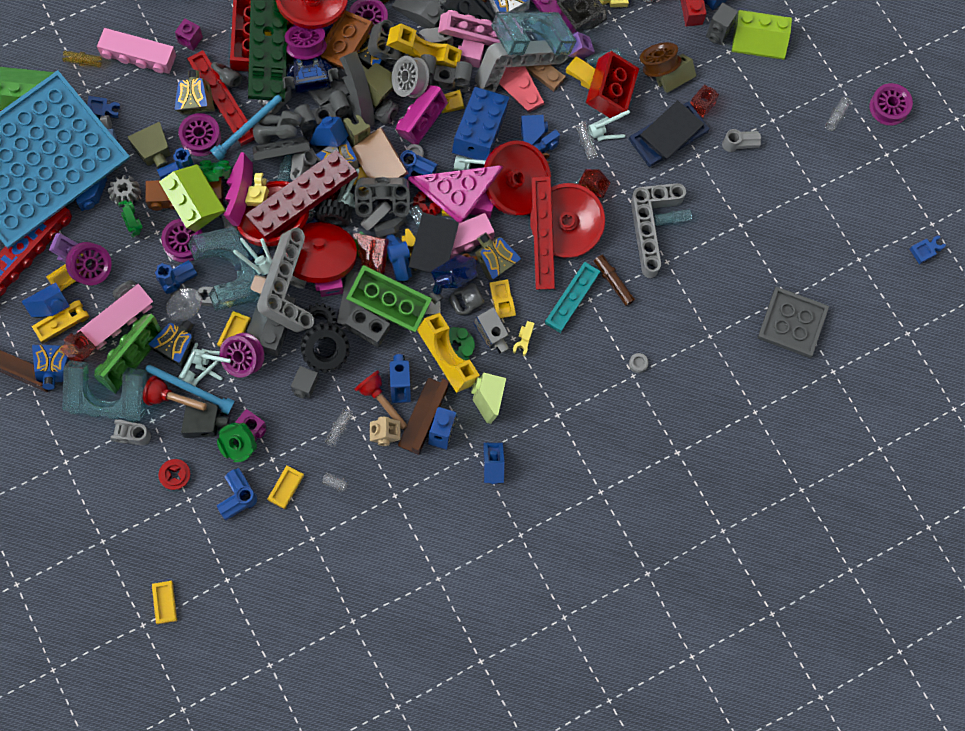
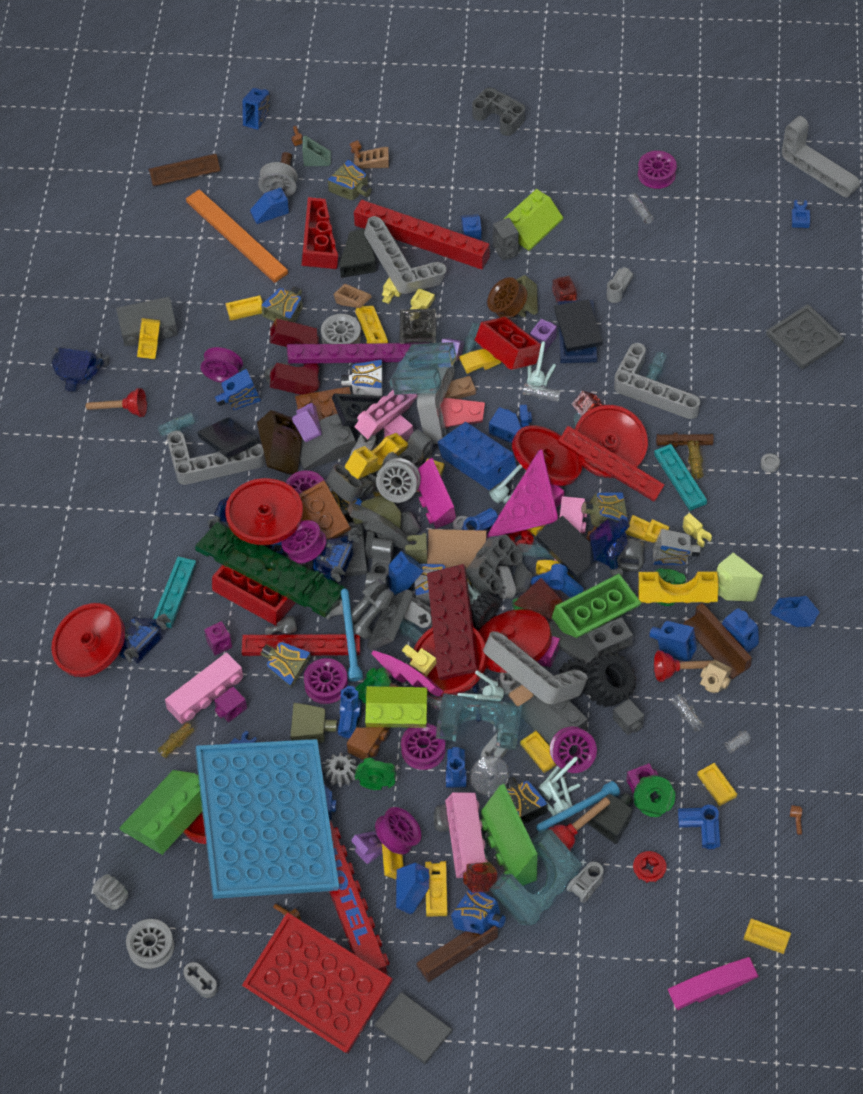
camera: 50 degrees left, 15 degrees down
(92, 581) = (713, 982): none -> dark pink slope
(135, 78) = (230, 704): none -> magenta brick
(295, 566) = (796, 812): none -> dark orange hand
(599, 299) = (695, 459): none -> clear yellow pin
(642, 115) = (545, 332): none -> medium lavender brick

